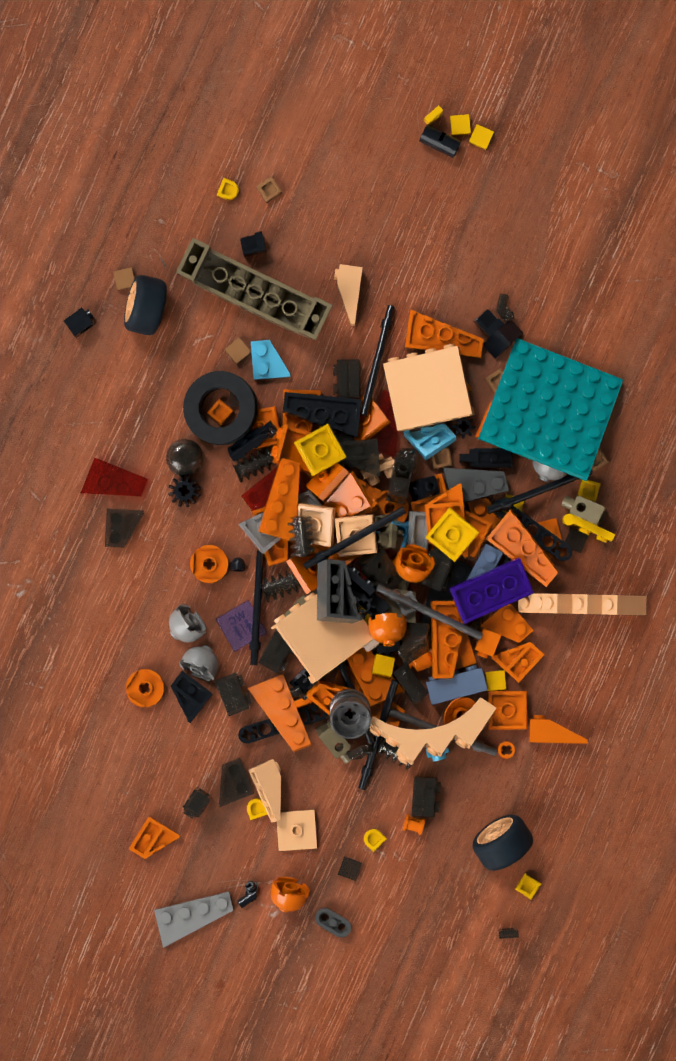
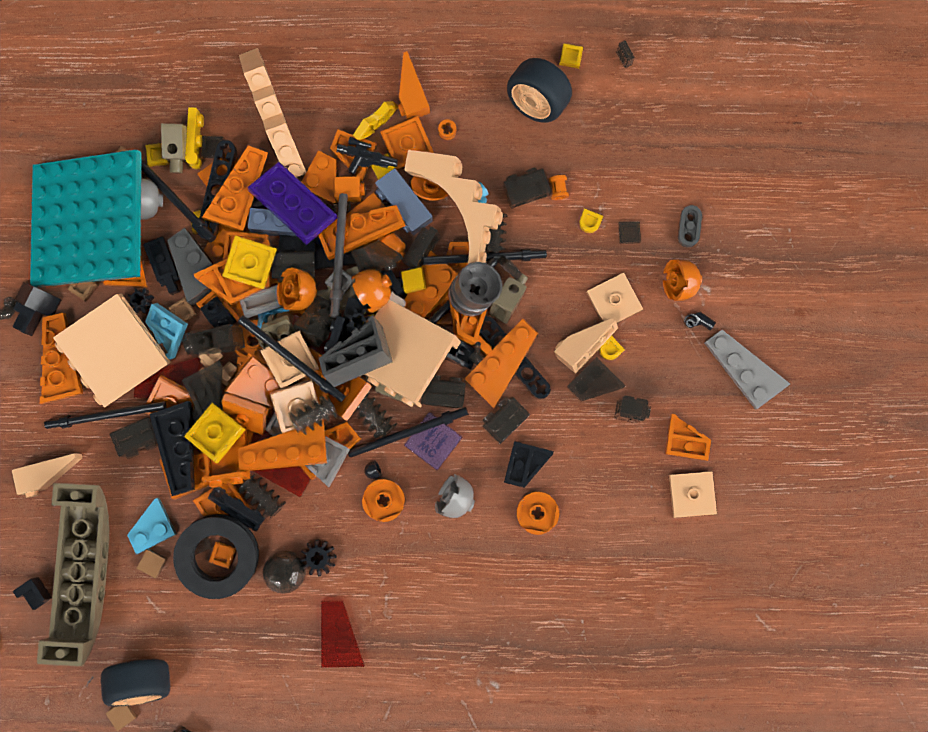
camera: 110 degrees left, 5 degrees down
(106, 824) = (692, 494): none -> light nougat plate
(120, 526) = (381, 608): clear smoke wing -> none
(201, 662) = (487, 465): light grey cylinder -> none
(477, 746) = (456, 221): flat silver bar -> none
(508, 667) = (363, 157): none -> black piece
(538, 691) = (374, 121): none -> yellow tile

